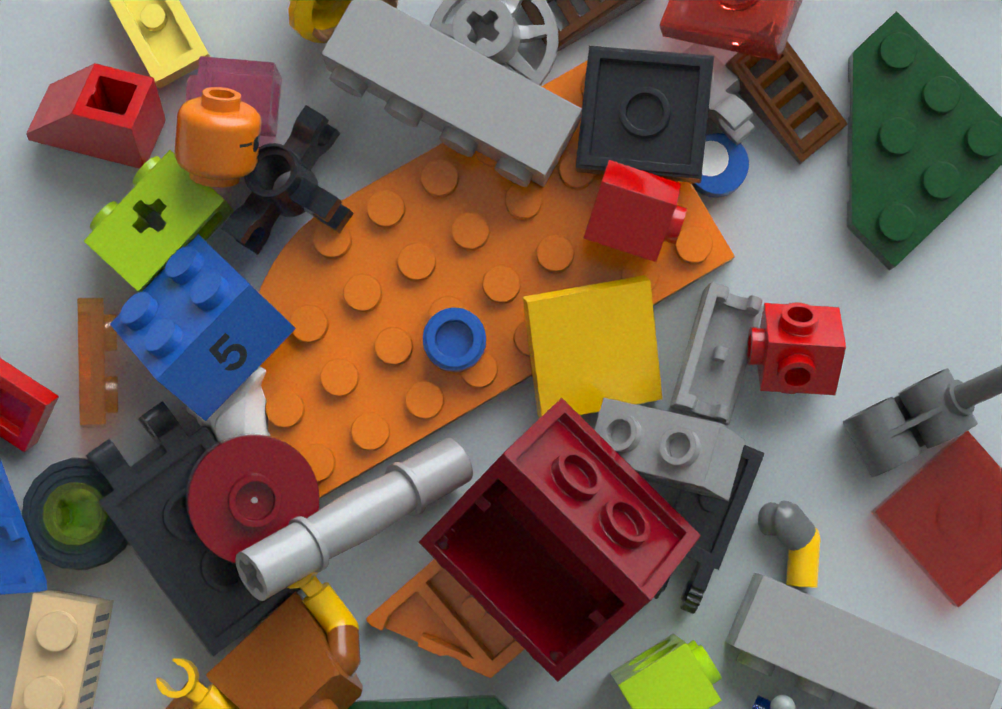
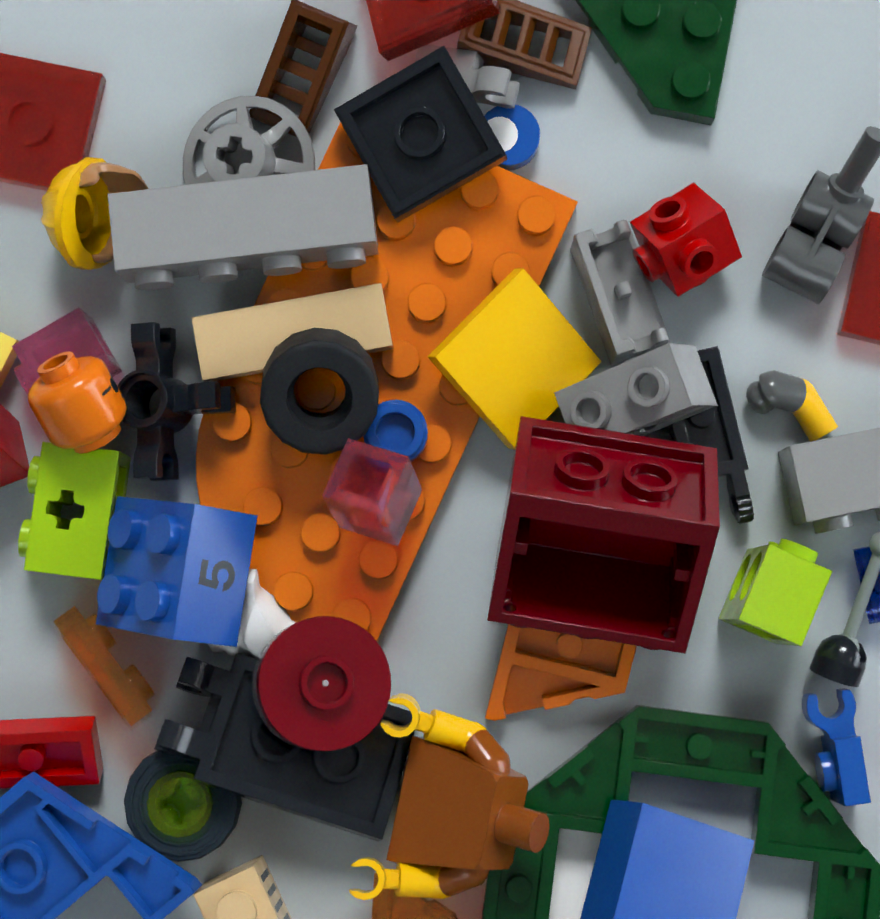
camera: 30 degrees left, 0 degrees up
(353, 518) = (418, 640): light grey piece -> none
(393, 295) = (311, 430): none -> black tyre
(400, 374) = (372, 491): none -> clear pink brick
(429, 202) = (243, 339): none -> tan tile
(635, 212) = (471, 219): red brick -> none

